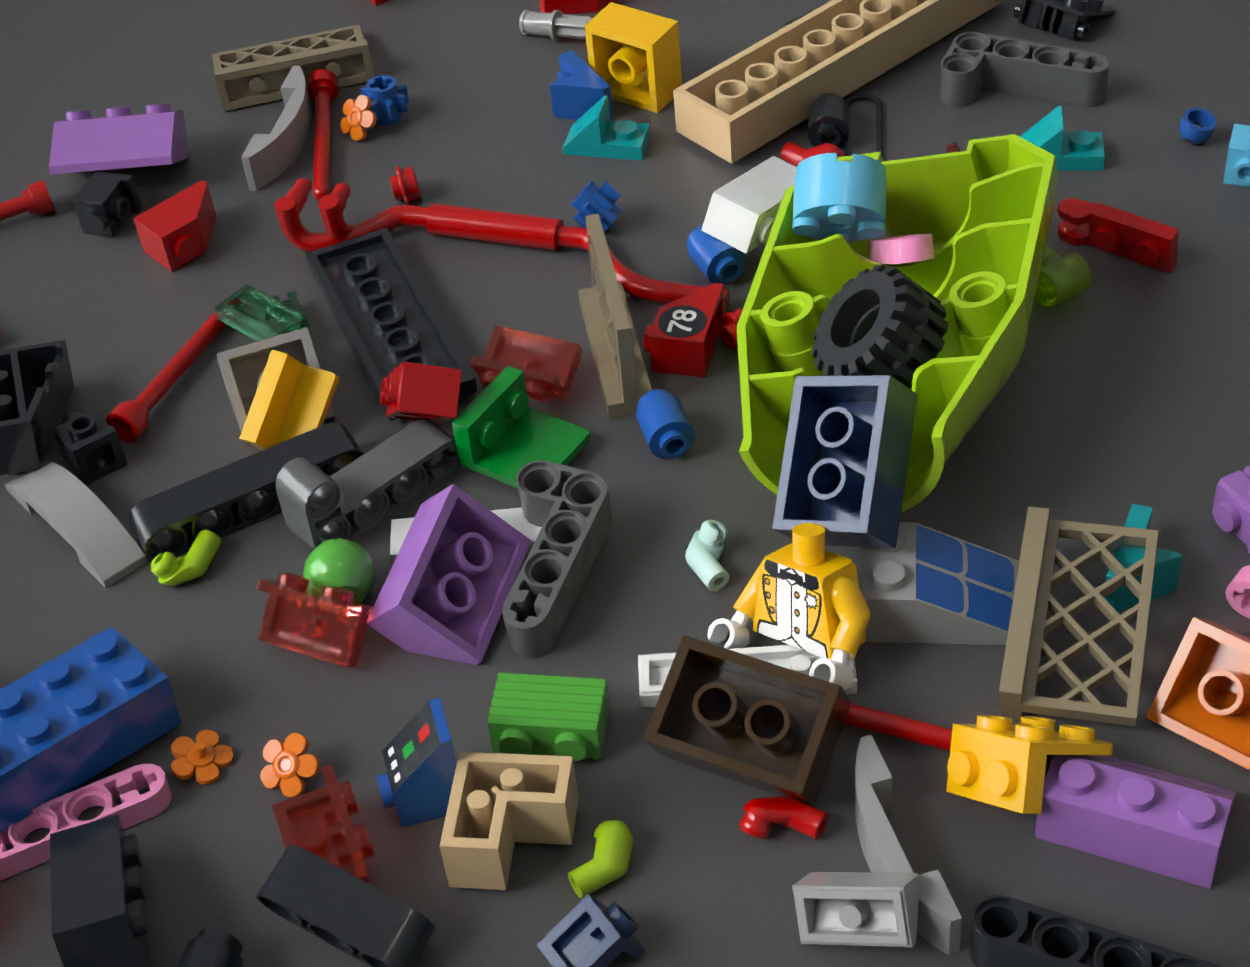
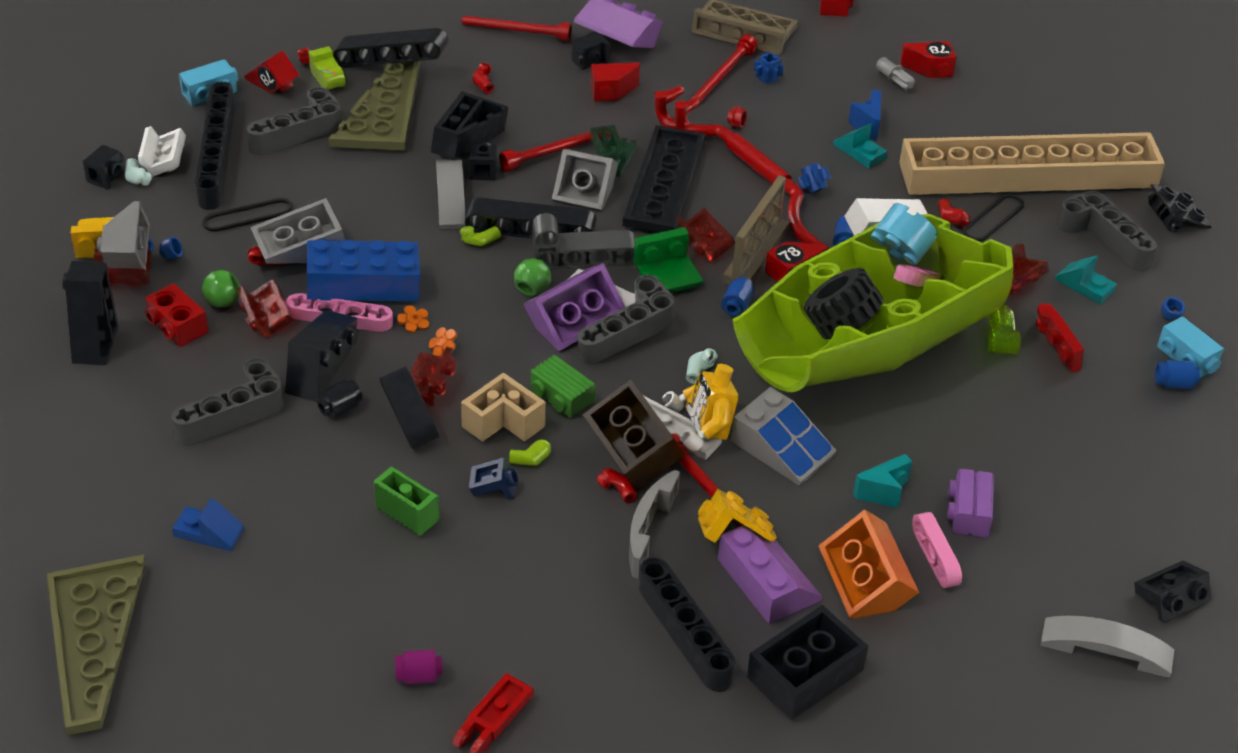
camera: 30 degrees right, 0 degrees up
(273, 153) = (689, 67): light grey slope -> none
(288, 401) = (578, 188): yellow panel -> none
(313, 621) = (503, 289): clear red bracket -> none
(358, 117) = (747, 71): orange plant -> none
(419, 767) = (487, 367): blue slope -> none
(421, 392) = (634, 217): red brick -> none
(635, 55) = (908, 109): yellow brick -> none
(829, 120) = (978, 199): black brick -> none
(846, 458) = (772, 349): dark blue brick -> none
(858, 908) = (606, 531): light grey slope -> none
(1030, 624) = (807, 469): dark tan fence -> none

